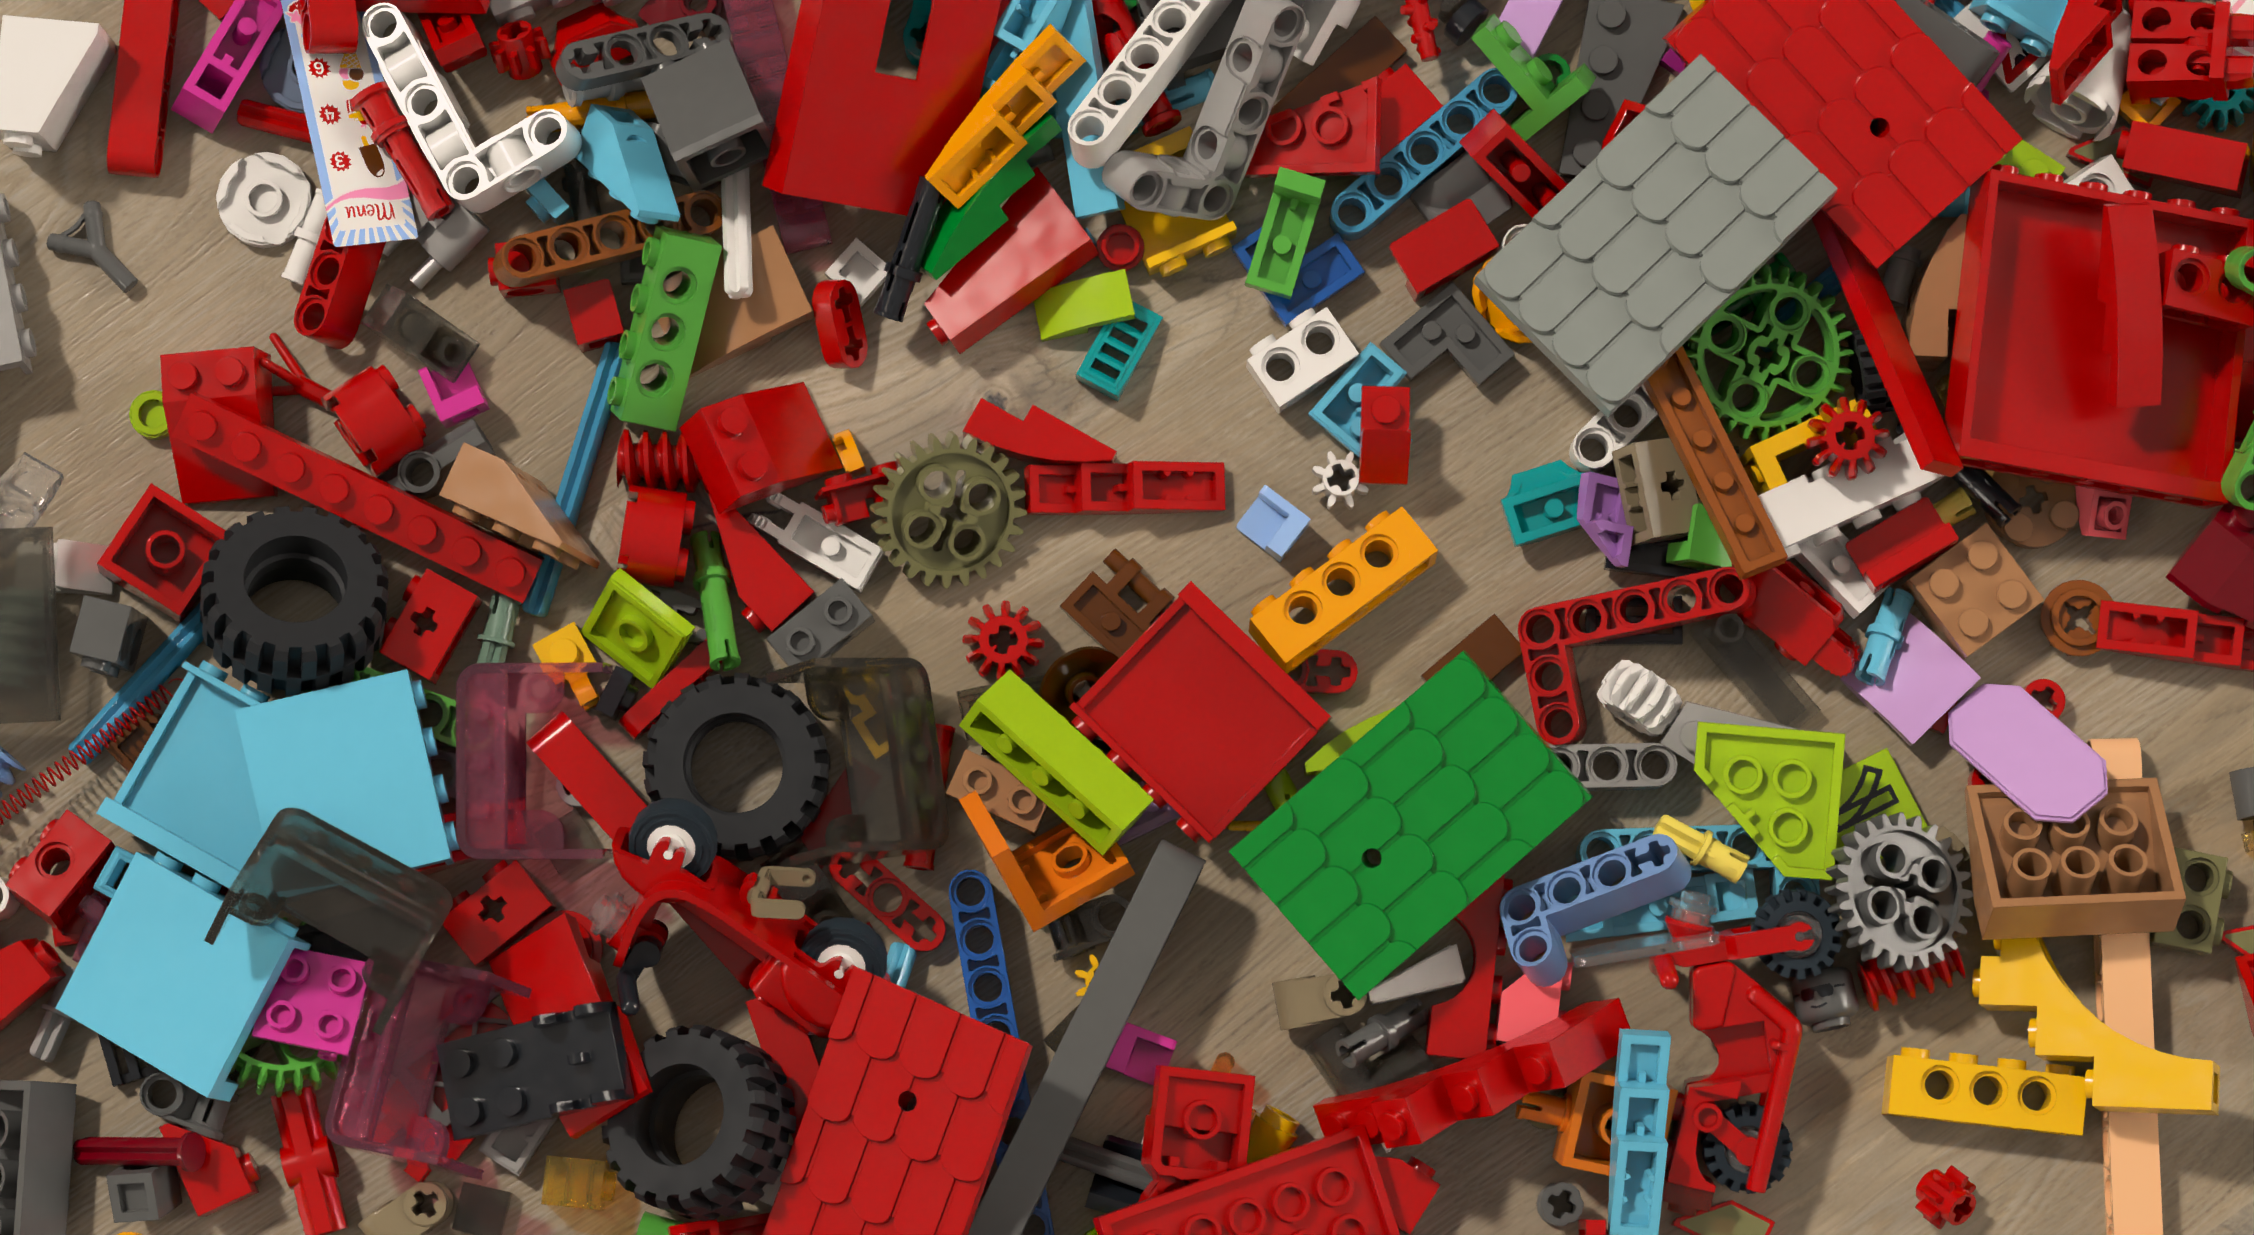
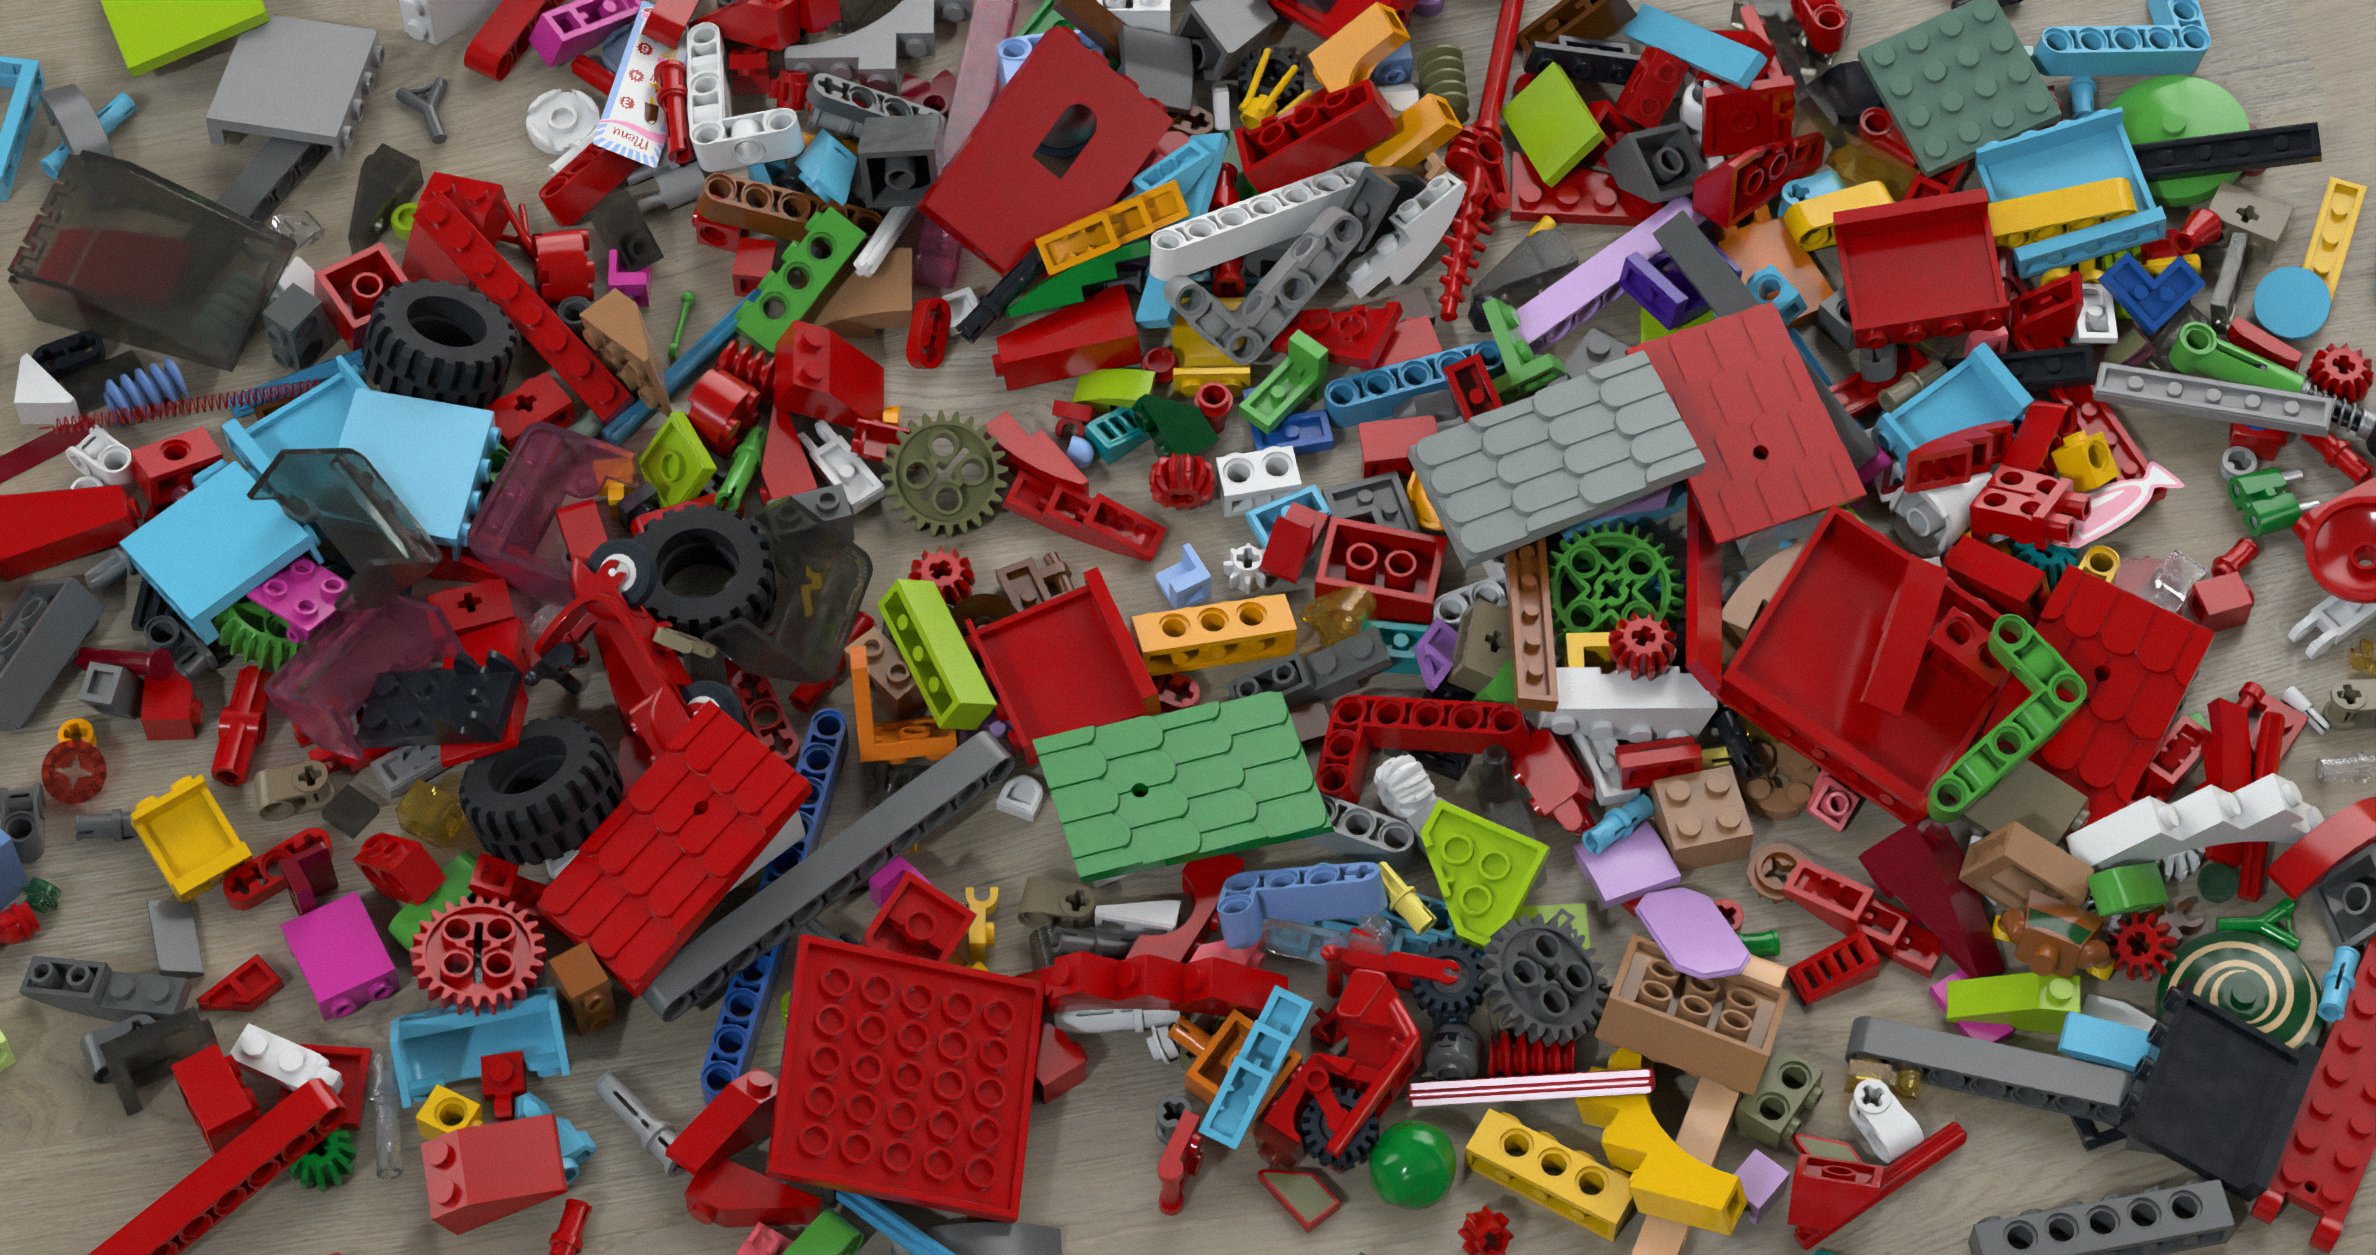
camera: 25 degrees right, 25 degrees down
(103, 389) = (384, 183): none -> clear smoke slope
(532, 384) = (687, 299): none -> bright green hinge
(1054, 357) = (1072, 414): none -> red tile
(1079, 405) = (1080, 452): none -> light blue hinge
(1184, 336) = (1174, 426): none -> dark green slope
(1213, 276) = (1215, 404): none -> red cone
(1219, 875) = (1021, 797): none -> white tile
(1221, 404) = (1182, 481): none -> red gear
(1245, 1061) = (981, 932): none -> yellow plate
(1470, 594) = (1319, 675): none -> dark grey slope
(1473, 508) = (1339, 613): none -> clear yellow piece
(1494, 428) = (1394, 564): none -> red brick
(1506, 1121) = (1162, 1046): none -> white plate
(1673, 1012) = (1327, 1028): none -> red piece
(1839, 1153) = (1412, 1165): none -> green piece
(1932, 1010) = (1531, 1087): none -> axle
(2091, 718) = (1761, 943): none -> green pin
(2206, 1016) = (1762, 1183): none -> lavender panel
(2212, 684) = (1843, 949): none -> red slope

